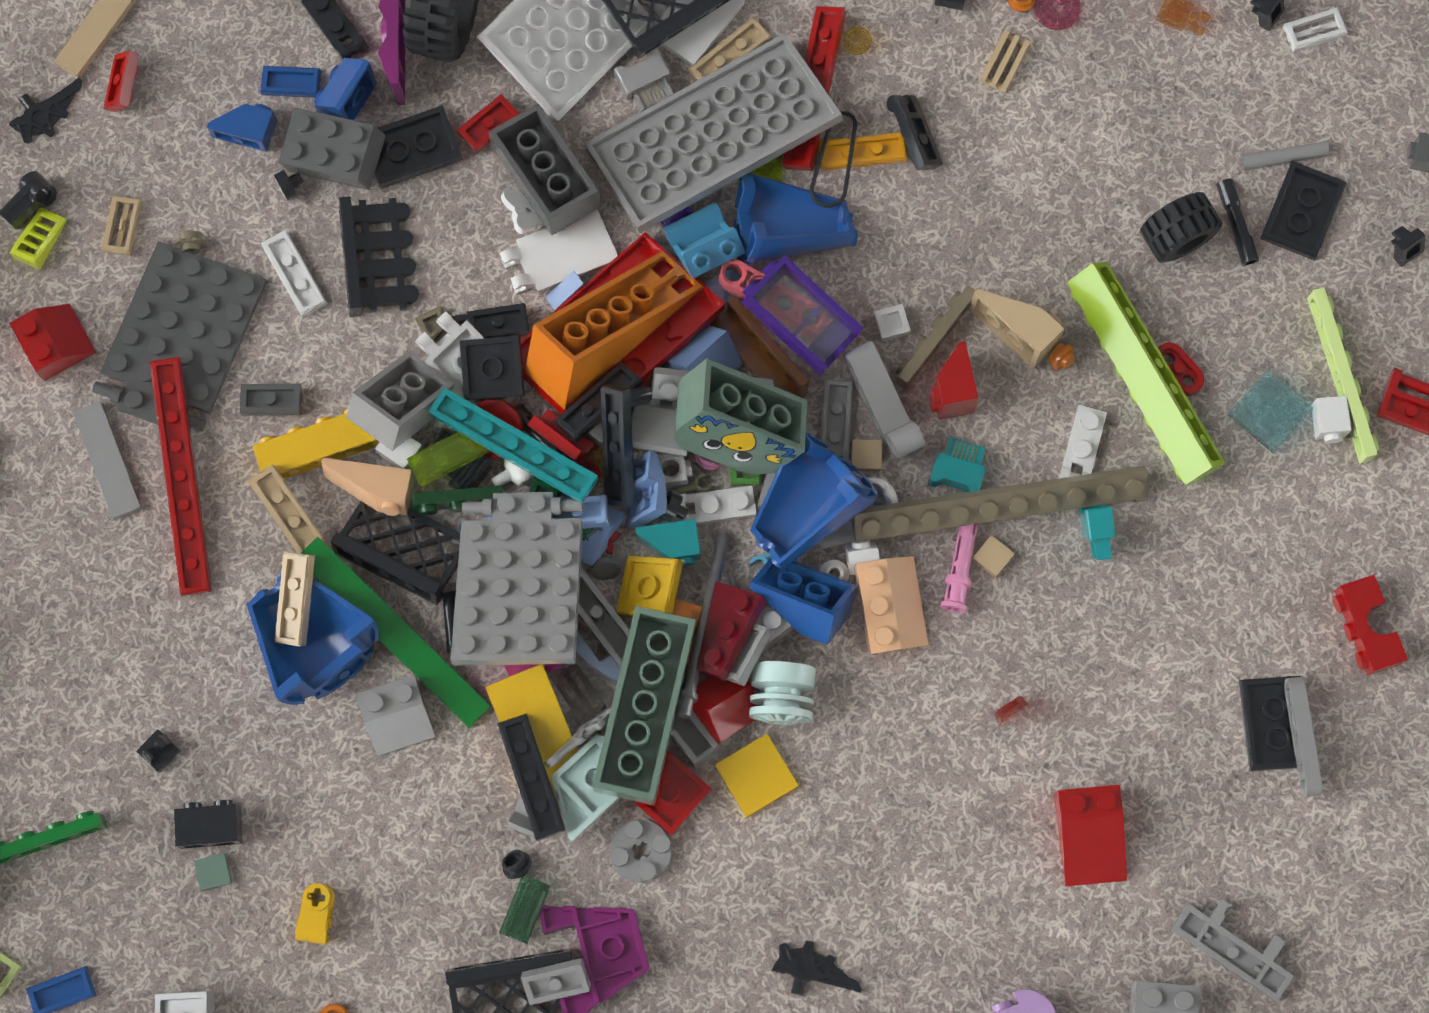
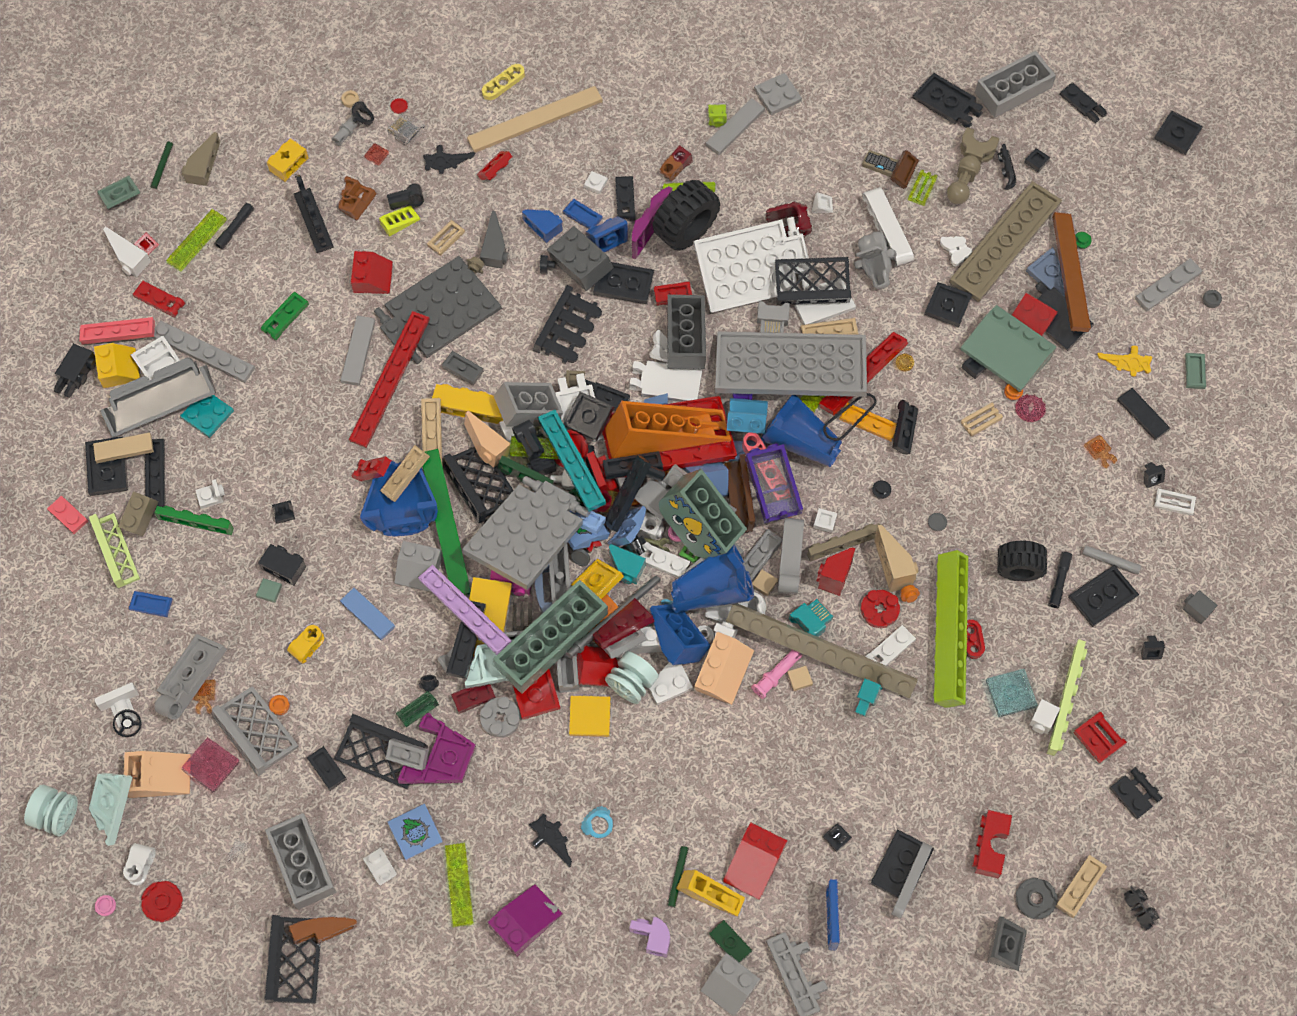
camera: 30 degrees right, 10 degrees down
(40, 789) = (210, 495): none -> white bracket
(200, 199) = (494, 249): none -> dark grey slope
(244, 619) = (371, 468): none -> red plate
(278, 25) = (595, 182): none -> white plate
(294, 273) = (518, 312): white tile -> none
(369, 821) = (367, 613): none -> medium blue tile
(428, 446) = (526, 435): none -> black piece
(506, 740) = (464, 609): none -> lavender tile
(587, 848) = (472, 697): none -> dark red plate
(834, 667) = (670, 684): none -> white wing
(847, 923) = (601, 812): none -> medium azure piece
(937, 235) = (881, 489): none -> black plate
(1006, 916) = (677, 876): none -> dark green bar
(1010, 709) = (754, 765): clear red tile -> none
(1028, 413) = (877, 598): none -> red plate
(1034, 236) = (937, 522): none -> dark grey piece
(1061, 911) = (710, 892): none -> yellow slope
(1126, 959) = (730, 941): none -> dark green plate
(1172, 737) = (837, 837): none -> black tile
(1236, 845) = (832, 915): none -> blue tile

